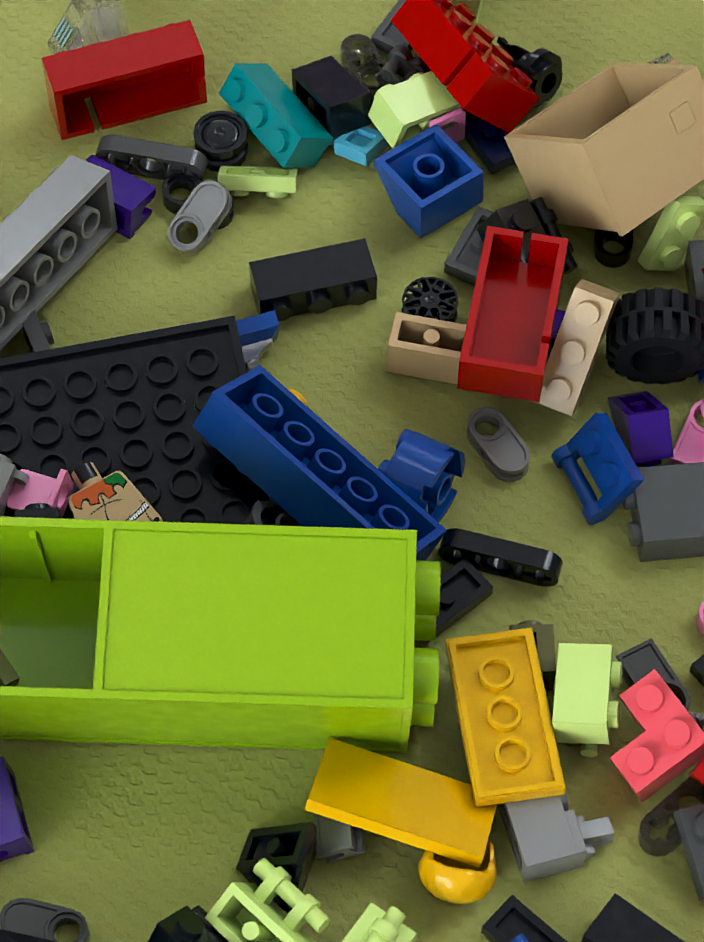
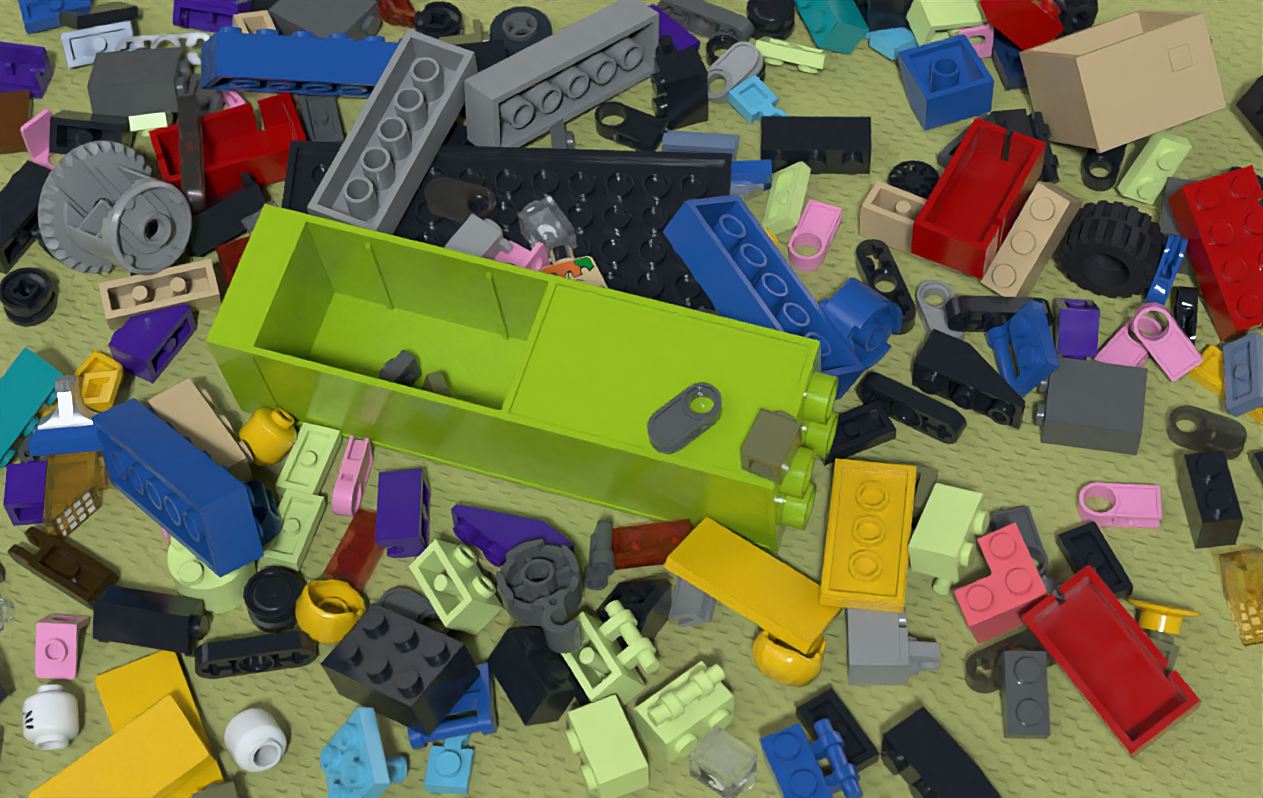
camera: 20 degrees right, 5 degrees down
(59, 445) = (547, 224): none -> clear brick
(81, 883) = (456, 586): none -> yellowish green brick
(117, 301) = (637, 130): none -> black piece
(137, 816) = (501, 532): none -> dark purple slope
(151, 245) = (679, 85): none -> black brick
(186, 884) = (543, 589): none -> dark grey piece
(189, 306) = (700, 142): none -> sand blue panel
(225, 809) = (600, 557): none -> dark grey piece
(234, 244) = (754, 100): none -> medium azure plate
(273, 780) = (648, 543): none -> clear red plate
(293, 661) = (677, 425): none -> dark grey piece
(300, 348) = (786, 198): none -> yellowish green plate
(340, 376) = (815, 228): none -> bright pink piece
(401, 662) = (771, 445): none -> olive brick
(429, 407) = (886, 271): none -> black beam
(542, 509) = (963, 376): none -> black slope
(550, 433) = (979, 312): none -> black beam

